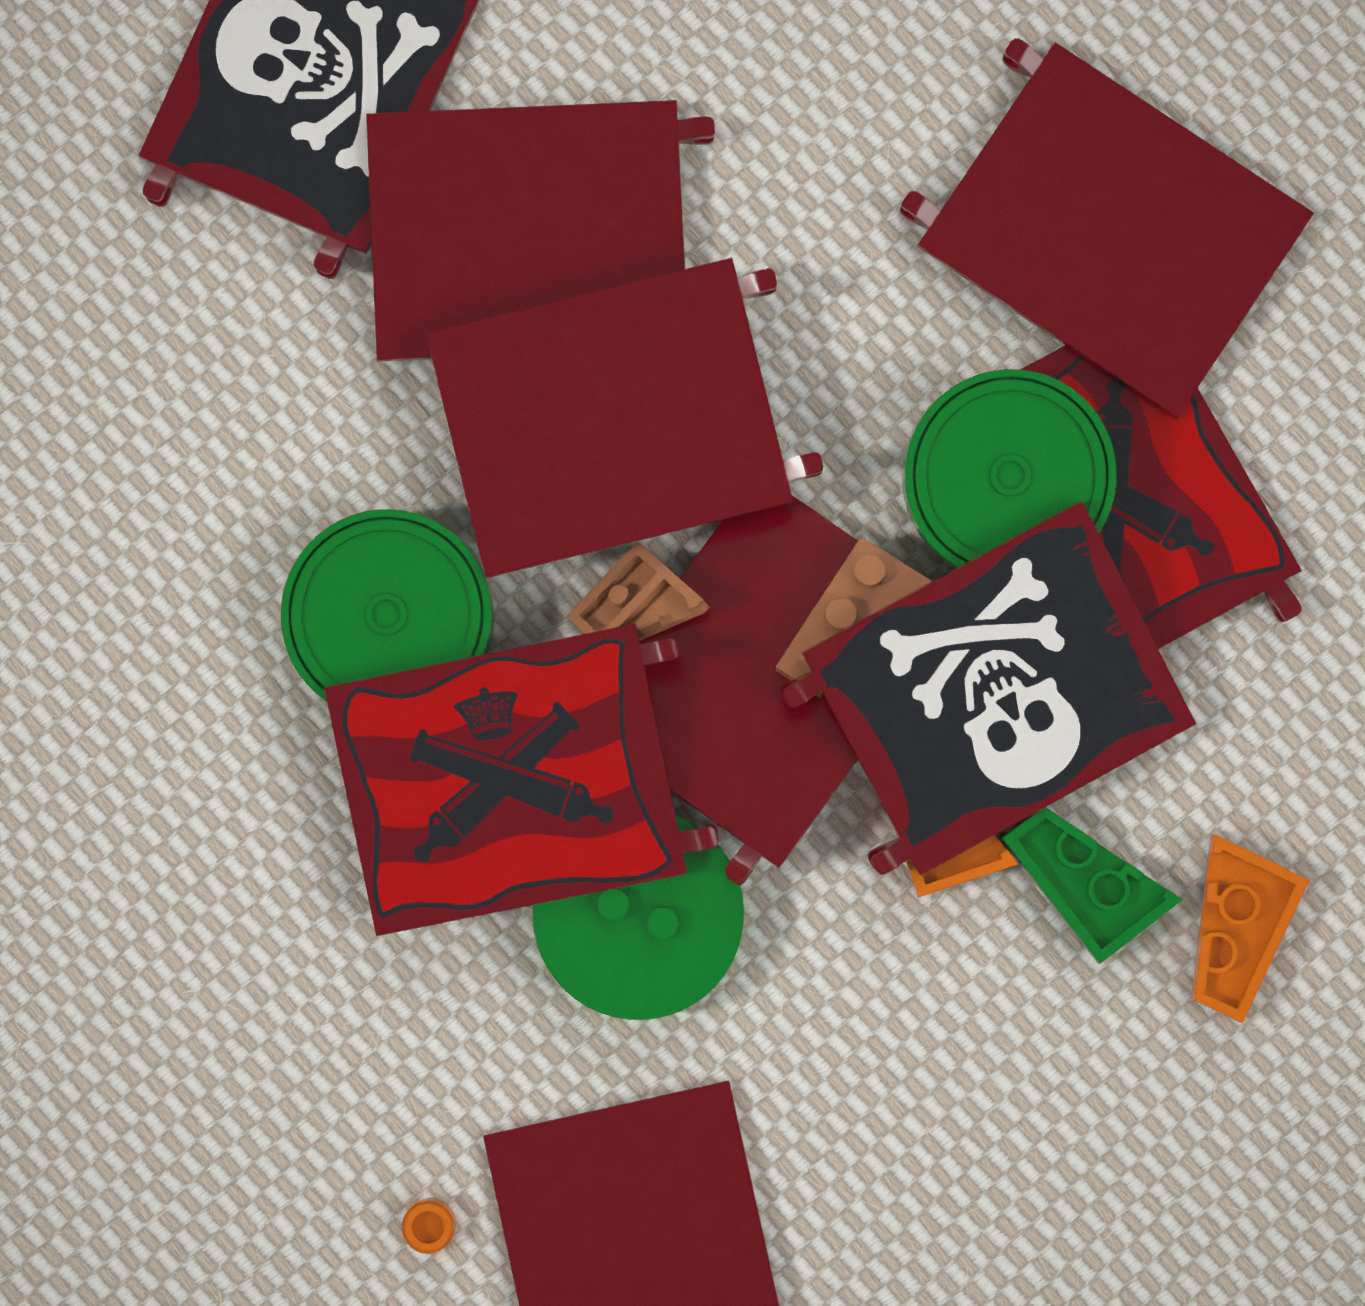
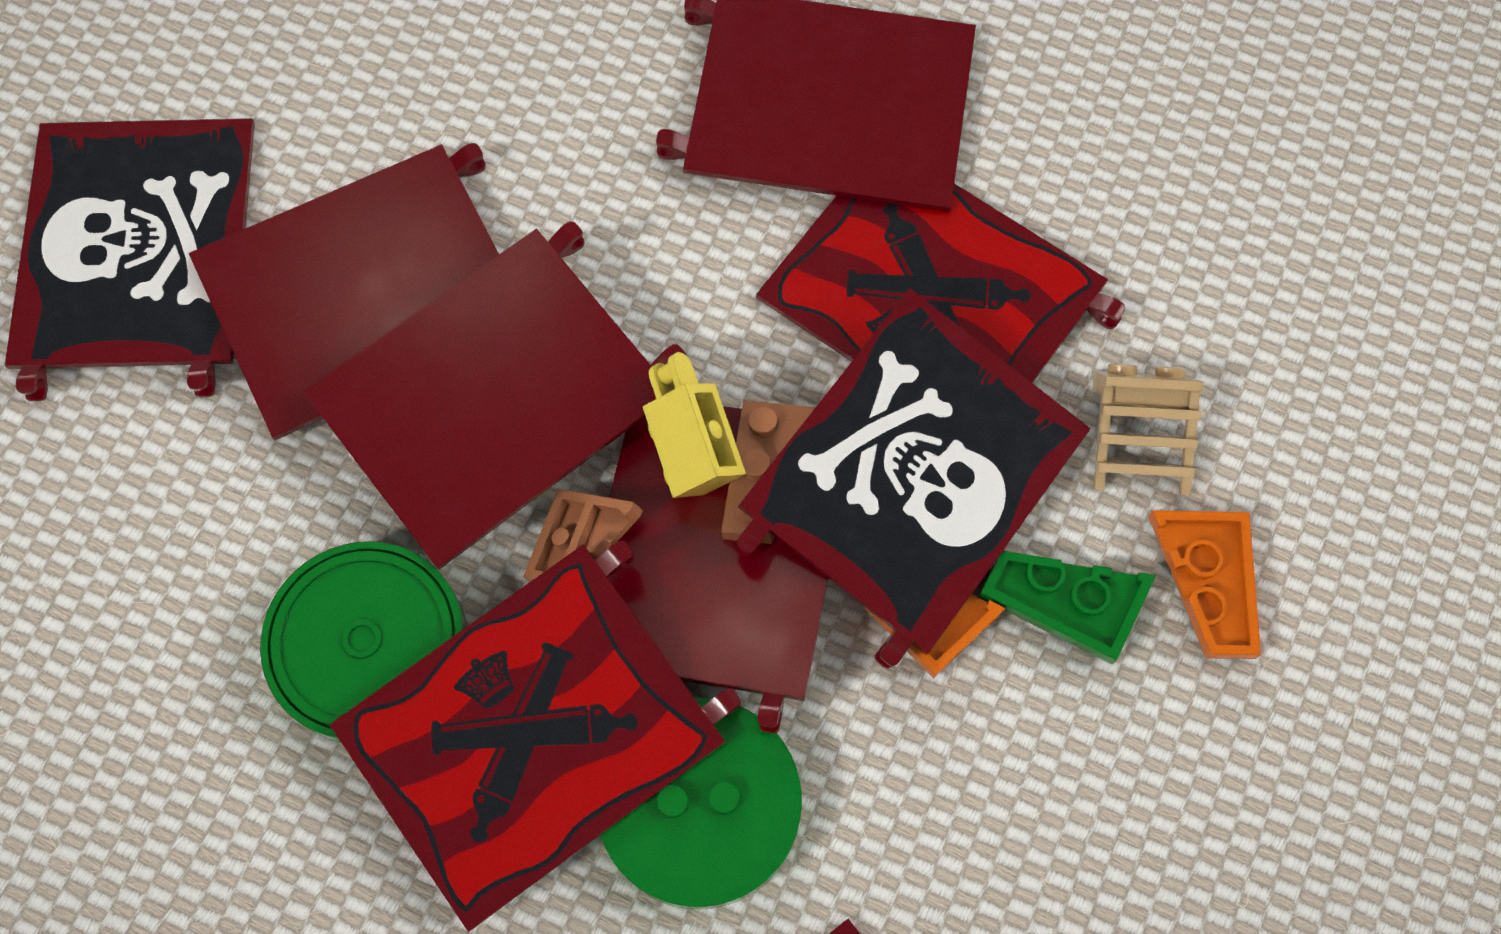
camera: 30 degrees left, 15 degrees down
(791, 551) = (690, 430): none -> light yellow brick
(1002, 459) = (827, 289): green brick -> none
(1270, 715) = (1156, 395): none -> tan plate

